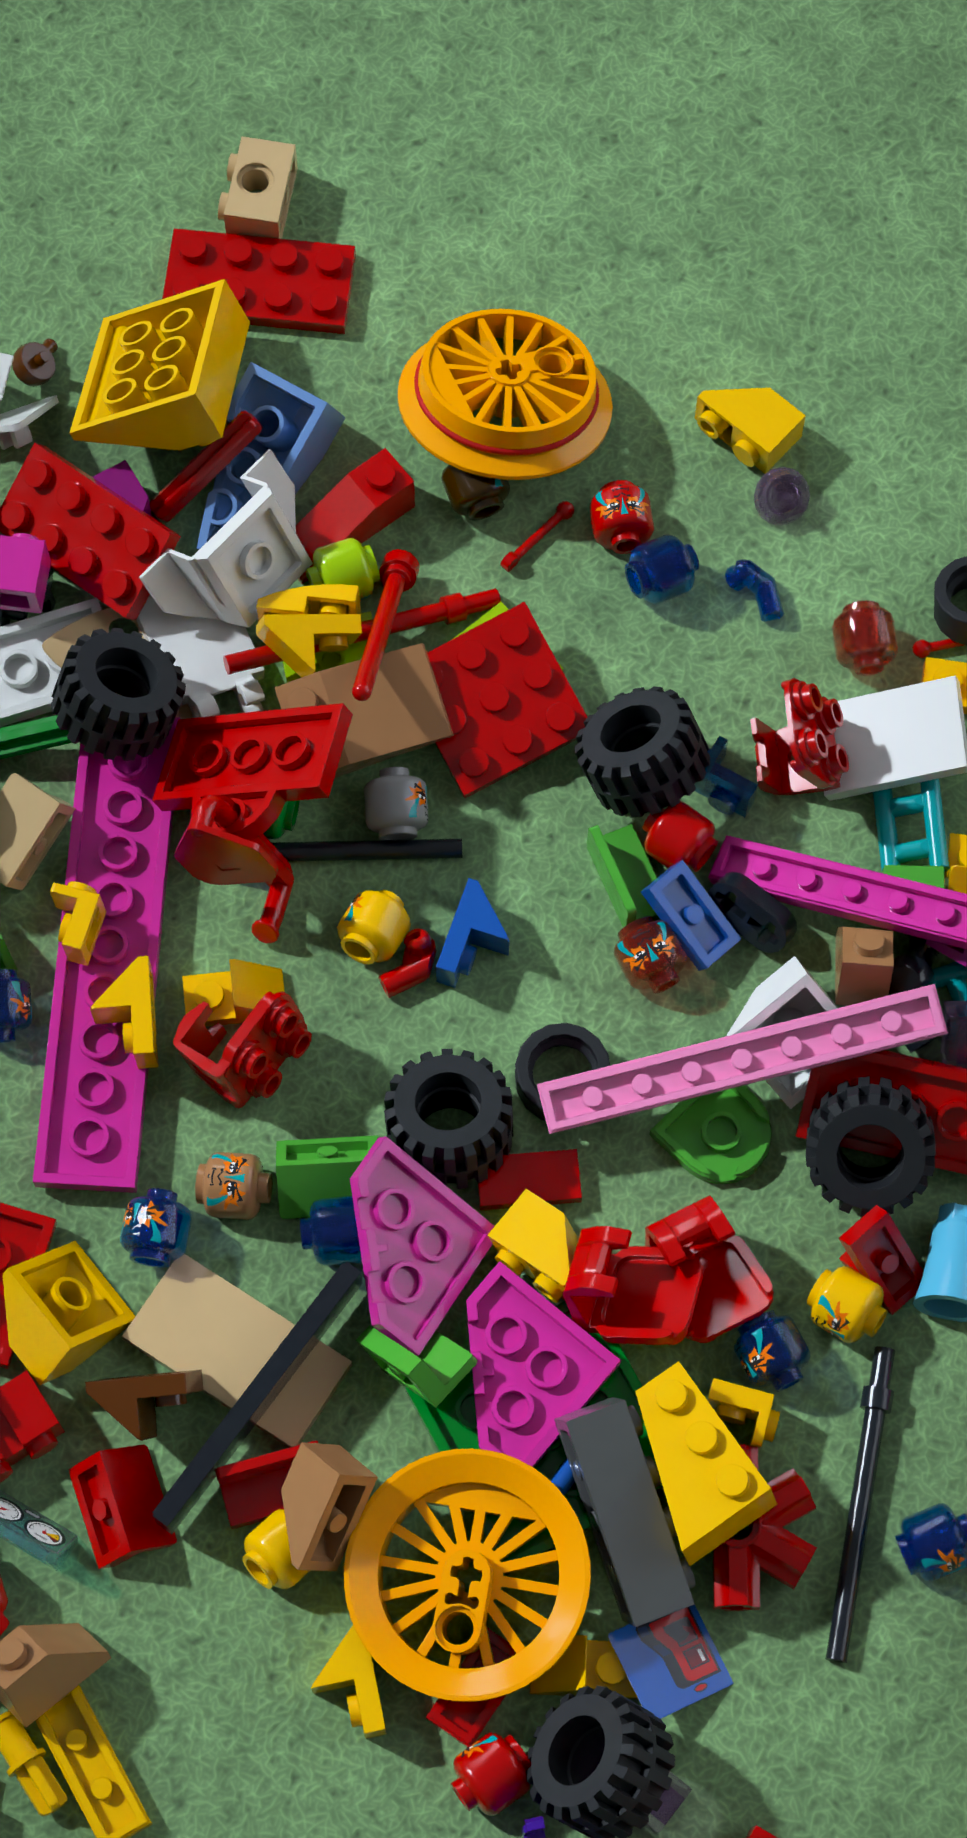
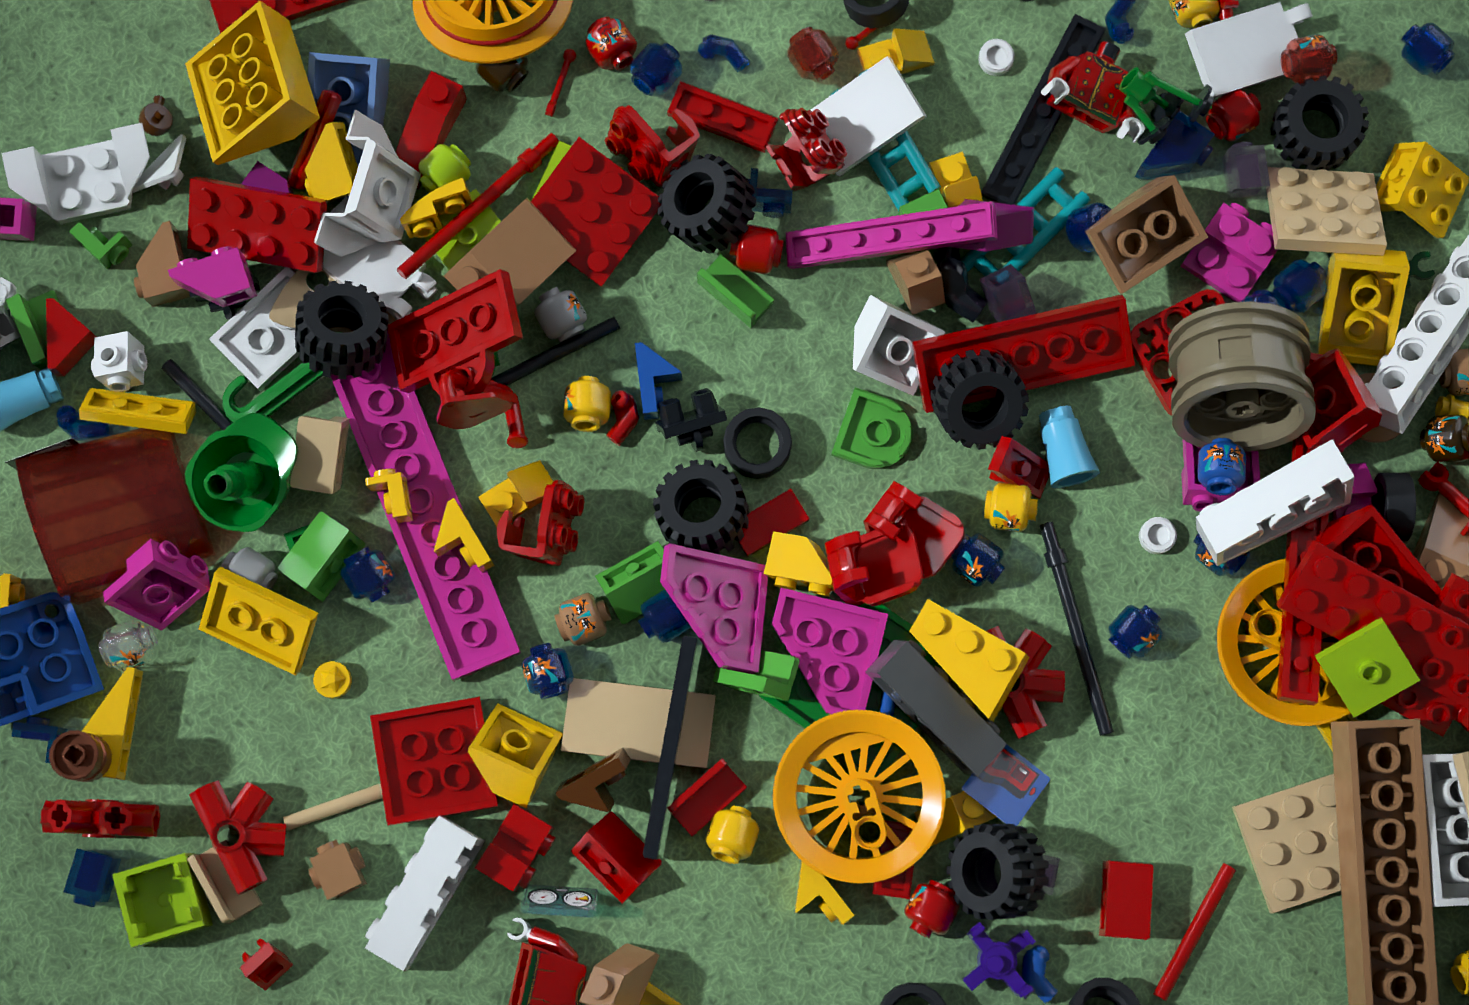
camera: 25 degrees left, 10 degrees up
(208, 500) = (331, 165): none -> yellow slope
(295, 634) = (440, 233): yellow slope -> none
(323, 1504) = (747, 796): medium nougat slope -> none
(397, 574) = (482, 153): red piece -> none
(470, 998) = (692, 423): none -> black hips
(598, 653) = (644, 148): none -> red piece
(650, 954) = (775, 337): clear red head -> none
(691, 914) = (790, 298): blue plate -> none
(716, 664) = (724, 117): none -> red tile
(738, 1402) = (970, 605): yellow bracket -> none
(742, 1059) = (872, 381): bright pink tile -> none
(753, 912) = (828, 277): black beam -> none

